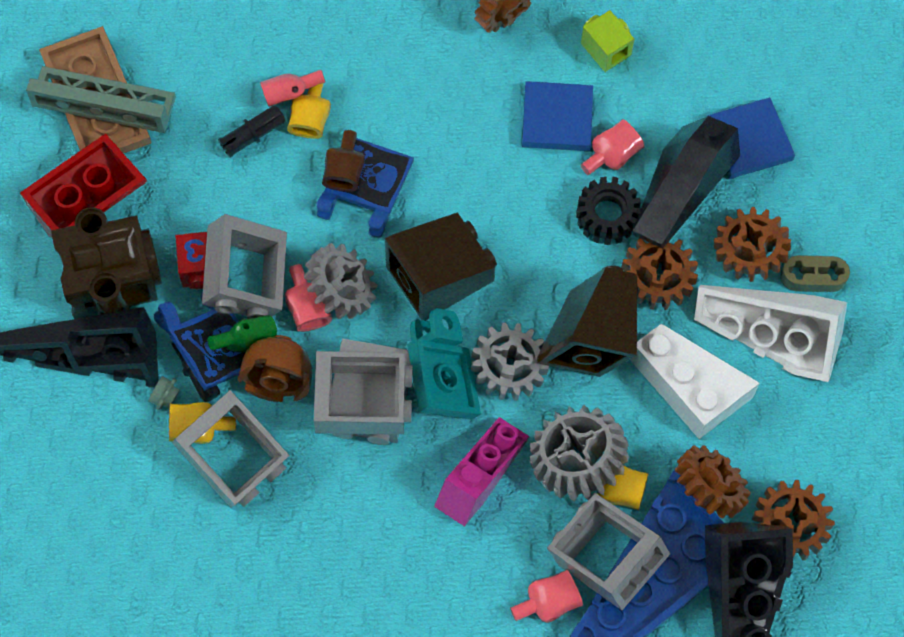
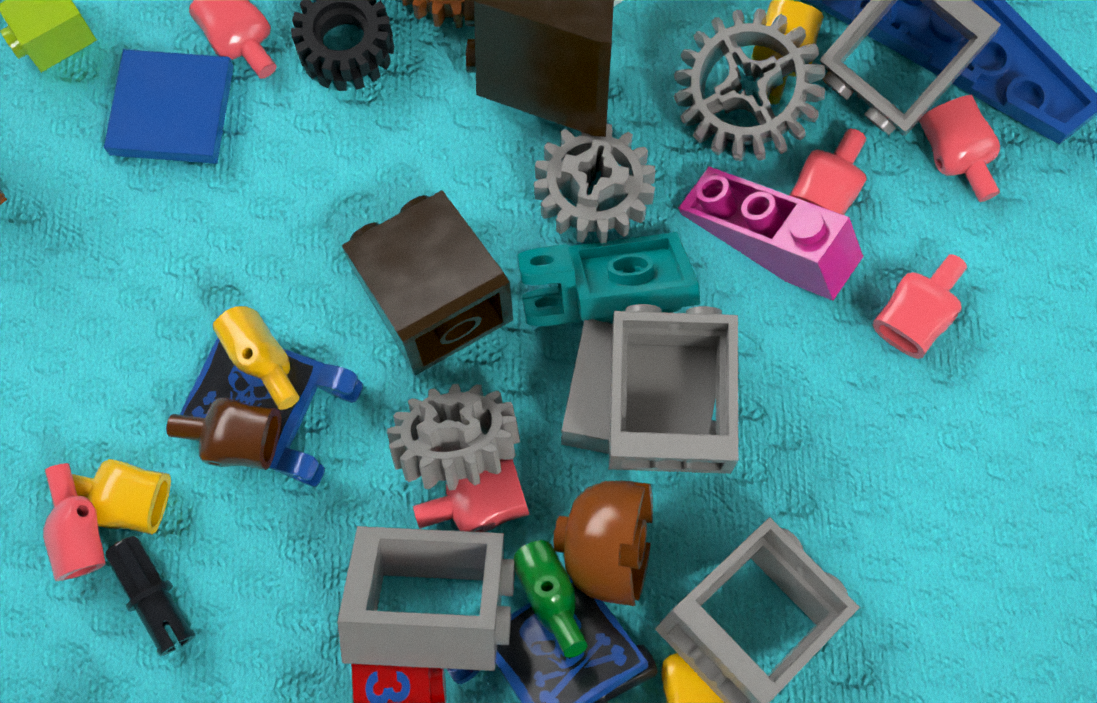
camera: 85 degrees left, 5 degrees up
(390, 172) = (256, 352): none -> yellow piece
(431, 563) = (921, 309): none -> coral piece
(520, 510) = (832, 178): none -> coral piece

